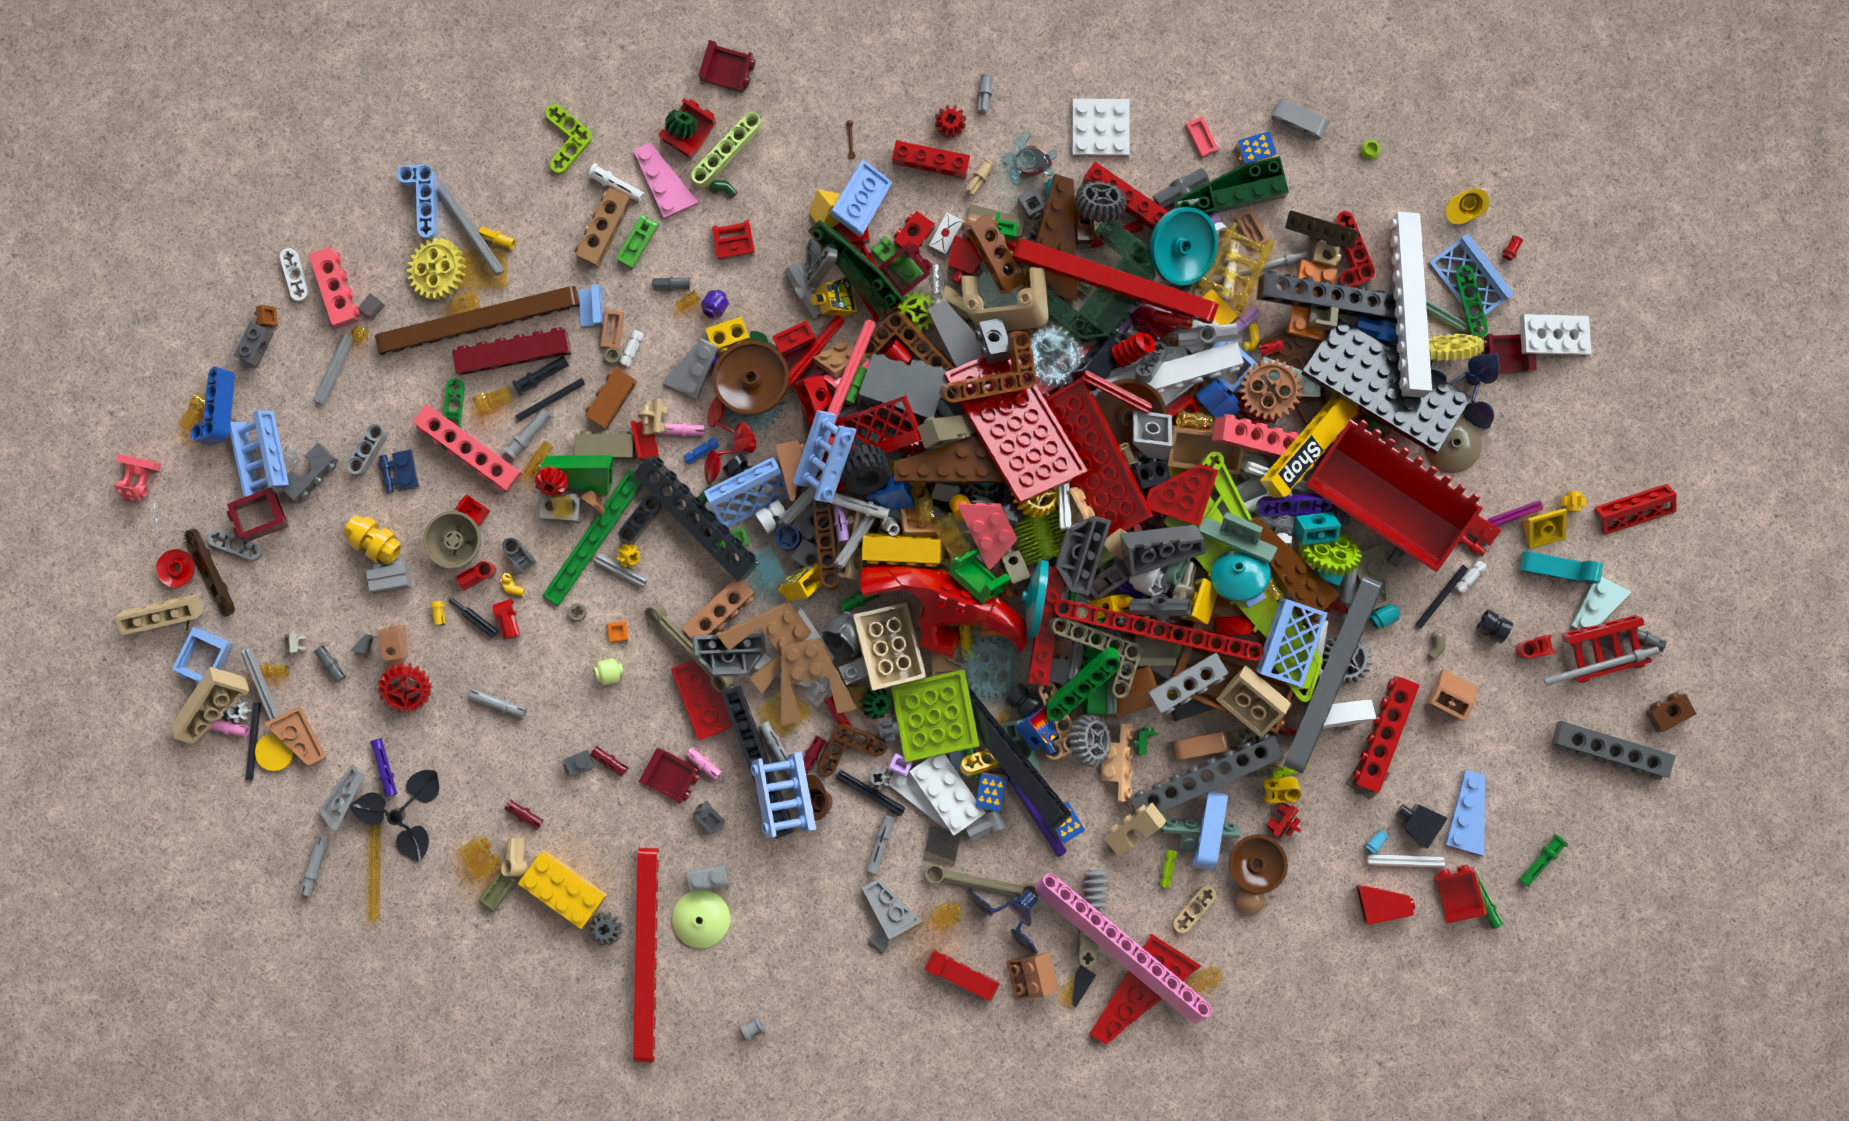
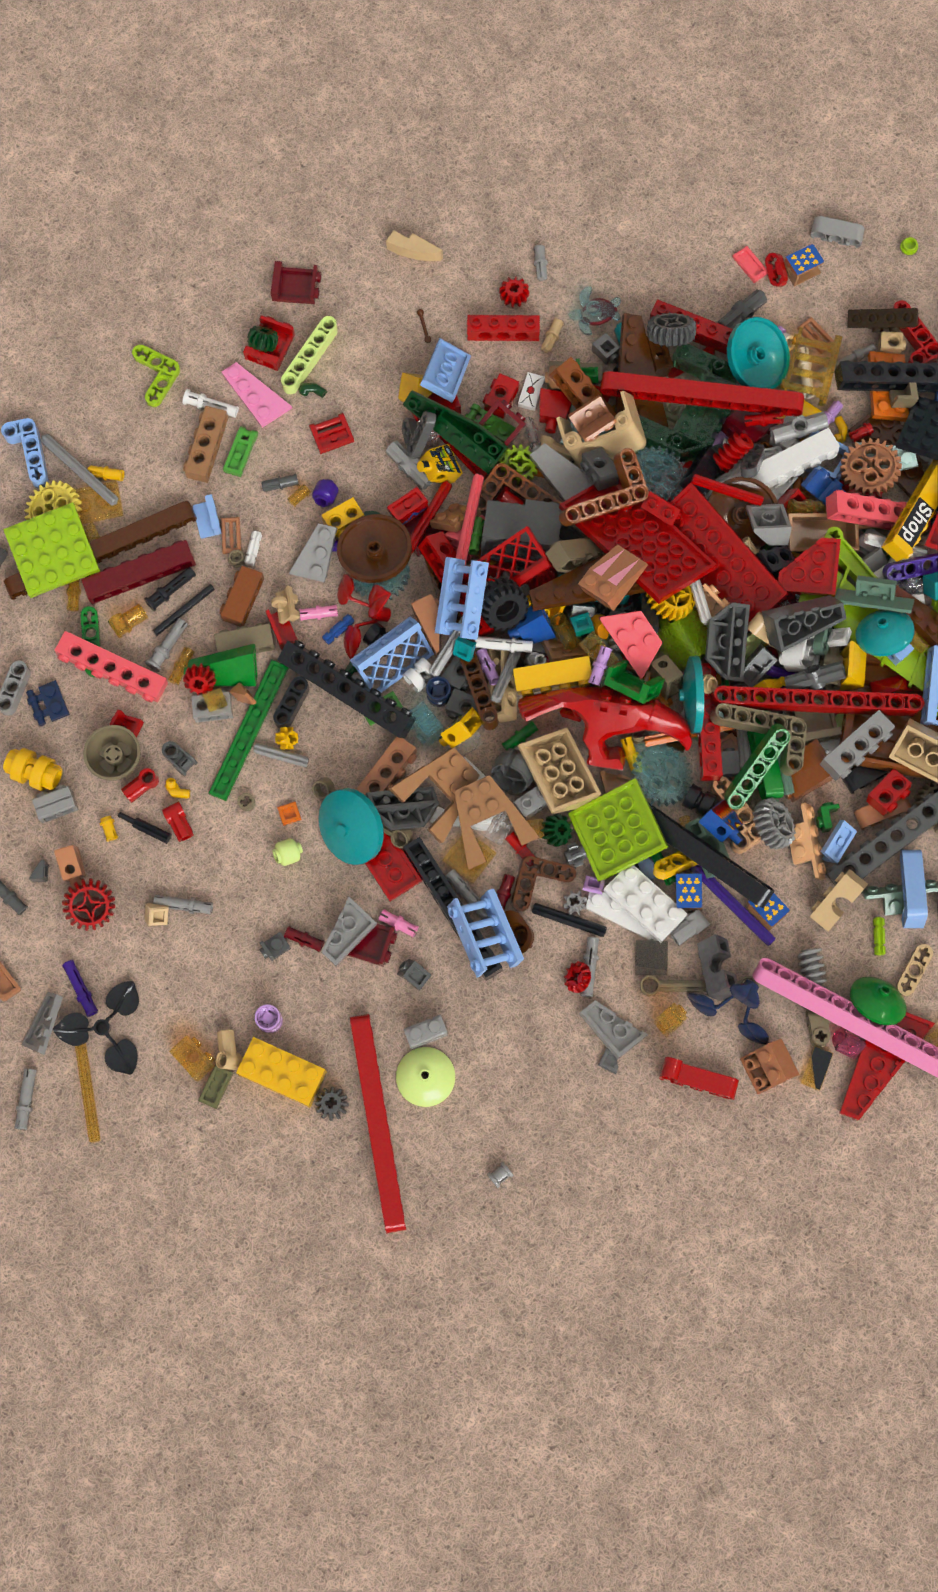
camera: 10 degrees left, 10 degrees down
(426, 314) = (51, 550): none -> lime plate
(443, 359) = (73, 595): none -> clear yellow pin
(469, 709) = (156, 914): none -> tan slope
(523, 814) = (228, 1007): dark red pin -> none
(559, 835) = (268, 1018): none -> lavender wheel
(651, 767) = (348, 932): none -> light grey wing
(673, 662) = (351, 826): none -> teal dish
(819, 508) = (464, 649): none -> teal tile
(855, 50) = (413, 247): none -> tan slope
(870, 857) = (582, 980): none -> red gear
(941, 503) = (582, 624): none -> teal tile
(948, 553) = (600, 665): none -> lavender pin
(979, 466) = (612, 576): none -> nougat slope
(997, 287) = (592, 419): none -> nougat bracket
(1000, 858) = (712, 955): none -> flat silver arch
(1046, 399) = (661, 508): none -> red hinge
(1053, 592) = (710, 684): none -> tan plate
(1100, 127) = (655, 273): white plate -> none
(1112, 969) = (847, 1043): none -> clear pink bracket
(1145, 940) = (878, 1000): none -> green dish
(1149, 770) = (838, 842): none -> light blue panel
(1195, 568) = (839, 637): none -> white tile
(1207, 728) = (886, 790): none -> red brick
(1226, 150) = (776, 269): none -> red beam
(1239, 188) = (800, 298): dark green wedge -> none

